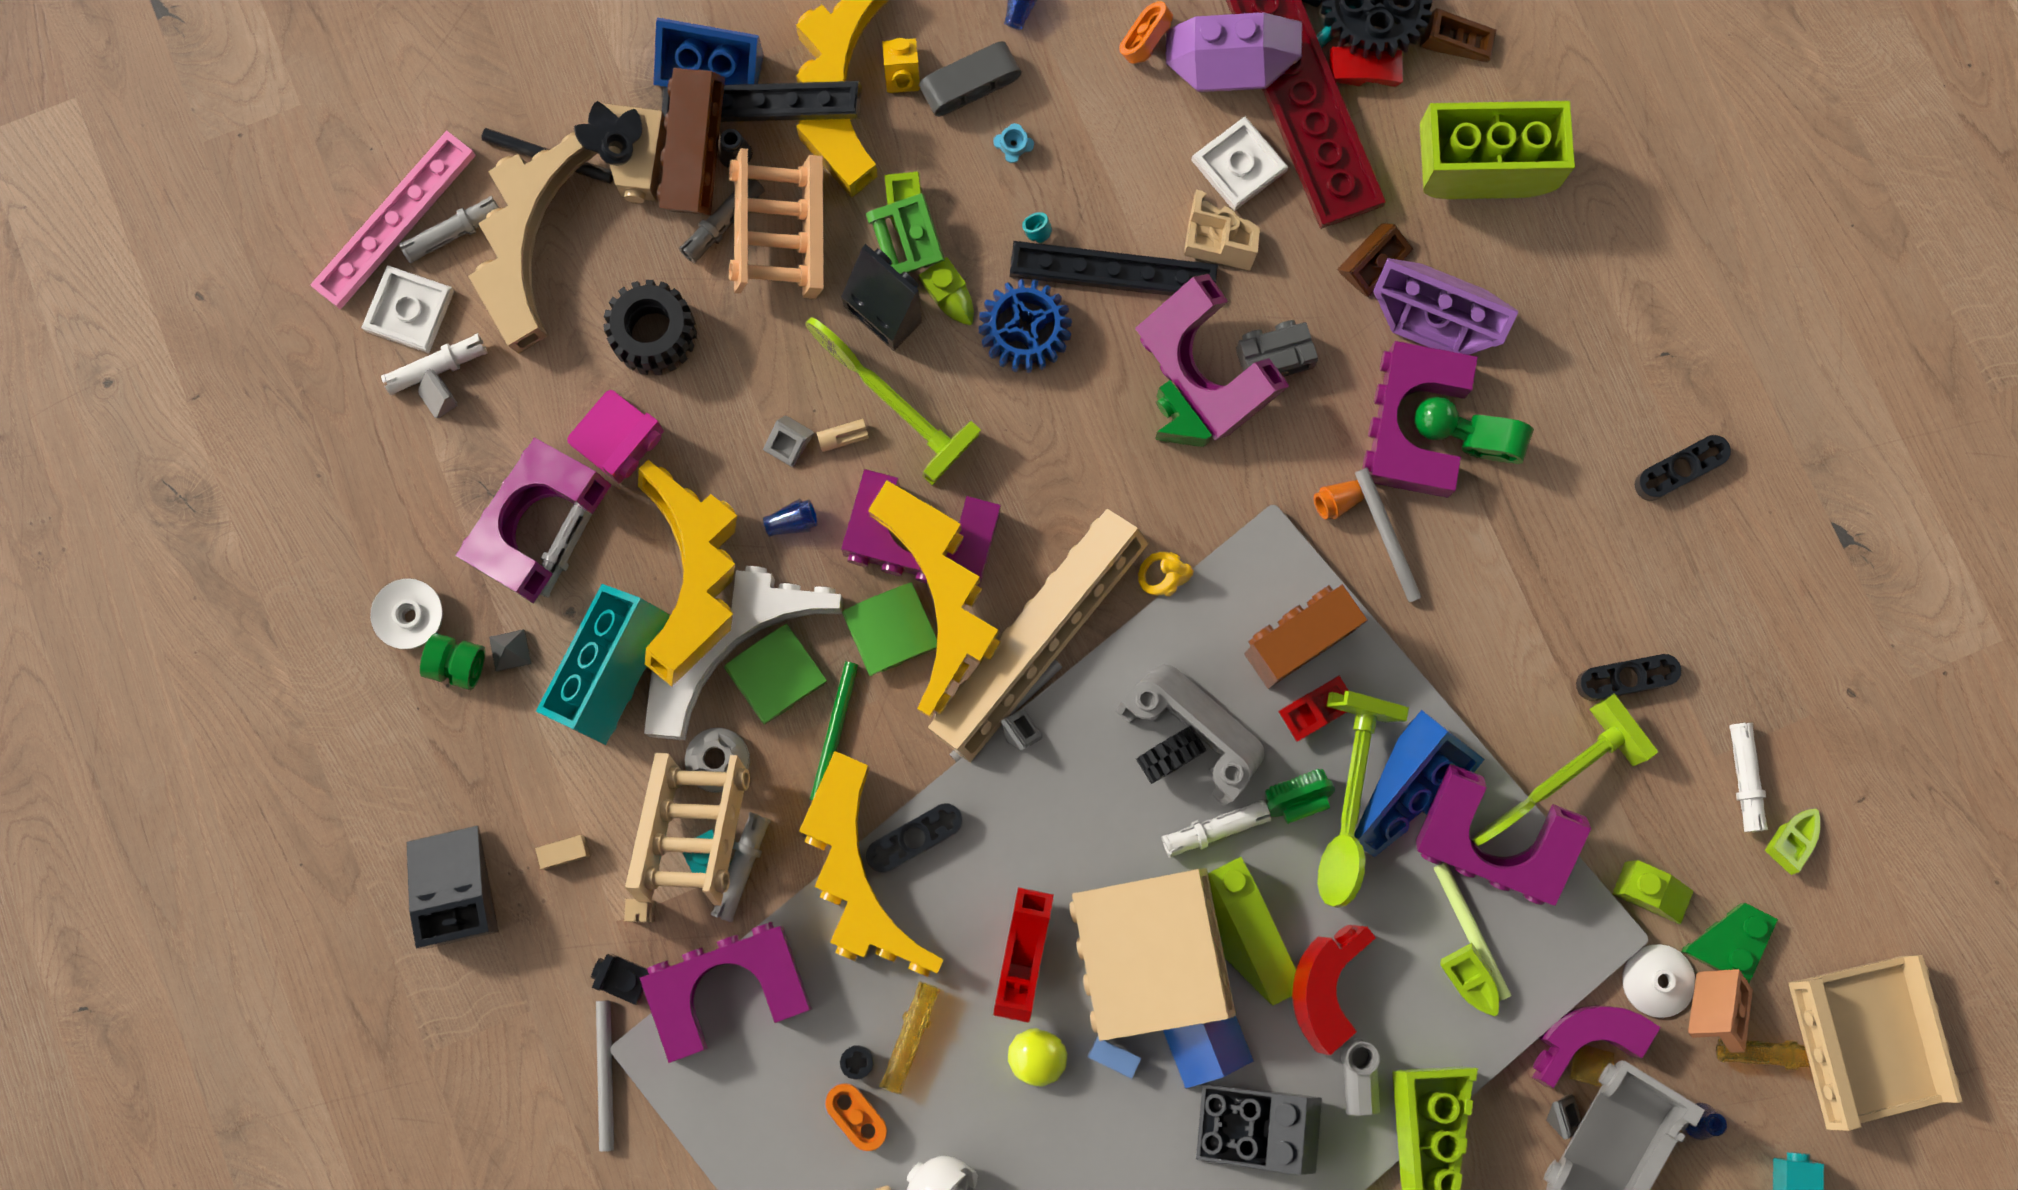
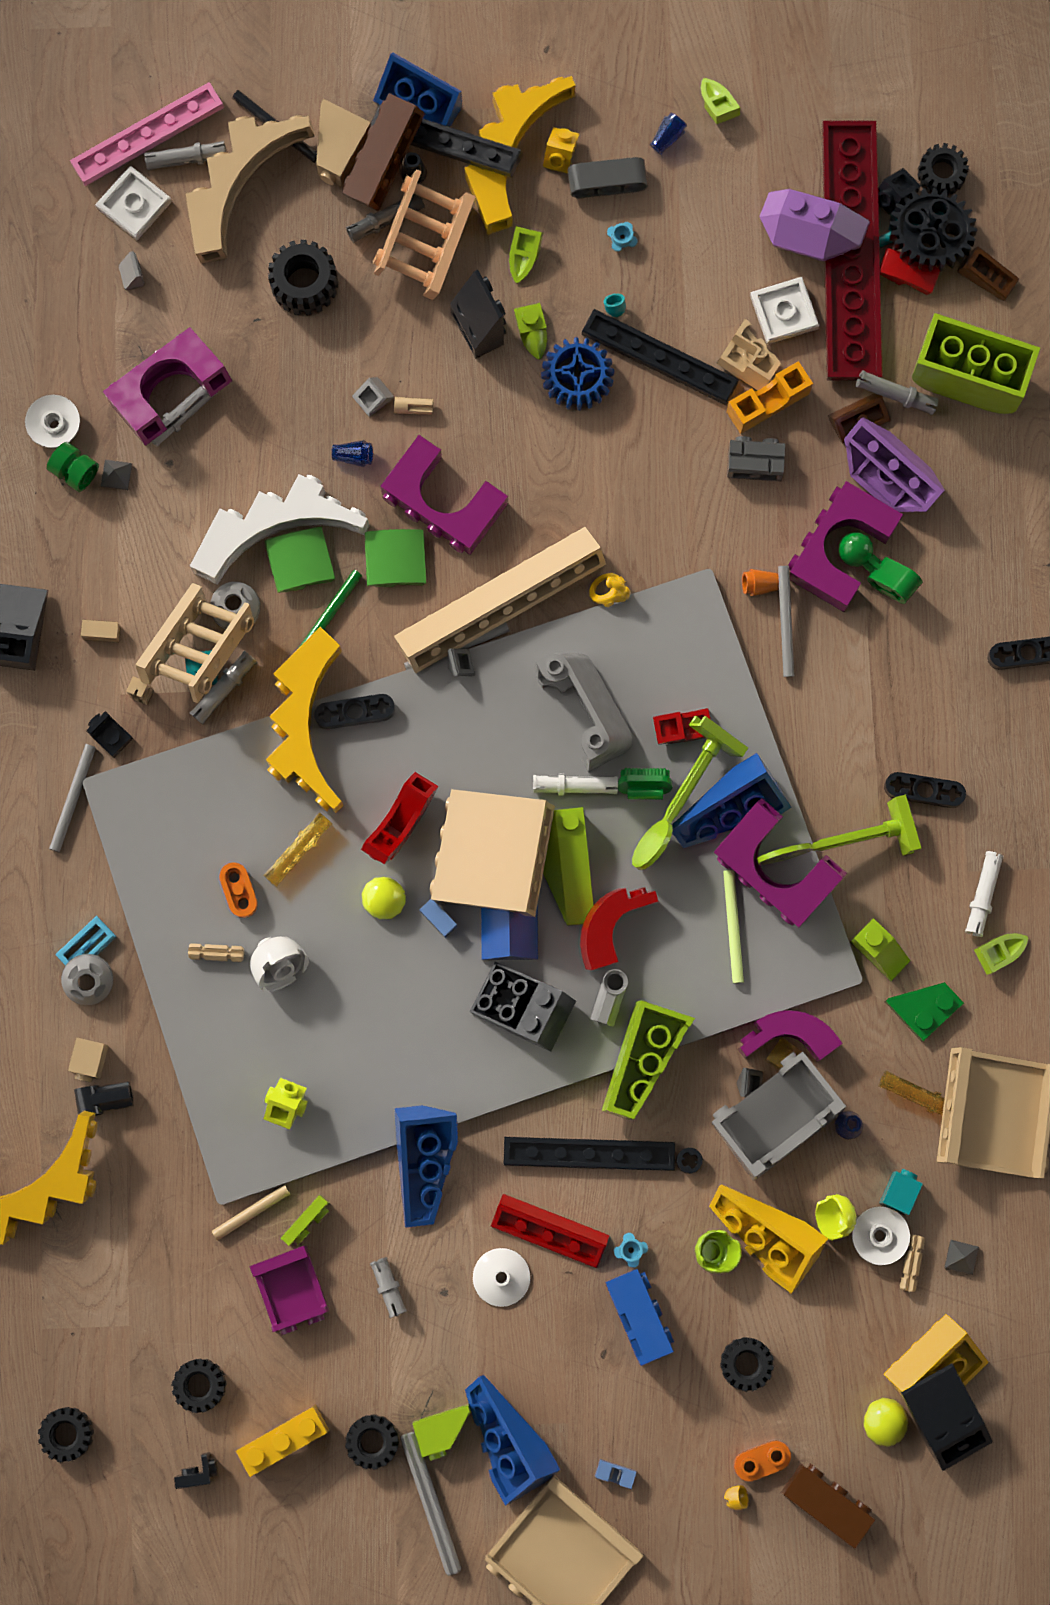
camera: 25 degrees right, 0 degrees up
(447, 358) = (149, 248): white pin -> none
(603, 663) = (179, 506): teal brick -> none
(608, 130) = (325, 122): black plate -> none
(615, 436) = (248, 347): dark pink bracket -> none
(673, 988) = (144, 751): magenta arch -> none
(698, 617) = (260, 494): yellow arch -> none
(849, 1053) = (251, 845): black bush -> none
(915, 231) = (523, 276): bright green plate -> none
(929, 539) = (449, 541): yellow arch -> none
(946, 448) = (485, 442): lime piece -> none
(1146, 32) = (752, 188): orange plate -> none
(1170, 338) = (680, 419): magenta arch -> none
(1171, 754) = (561, 718): black tyre -> none
(1186, 426) = (666, 489): green slope -> none
(1266, 273) = (784, 390): none -> light orange arch
(1304, 634) = (691, 668): dark orange brick -> none
(1425, 214) = (897, 392): none -> light grey pin
(1472, 978) = (719, 959): lime plate -> none
(1642, 985) = (844, 1015): white dish -> none
(1721, 1007) = (895, 1048): nougat panel -> none

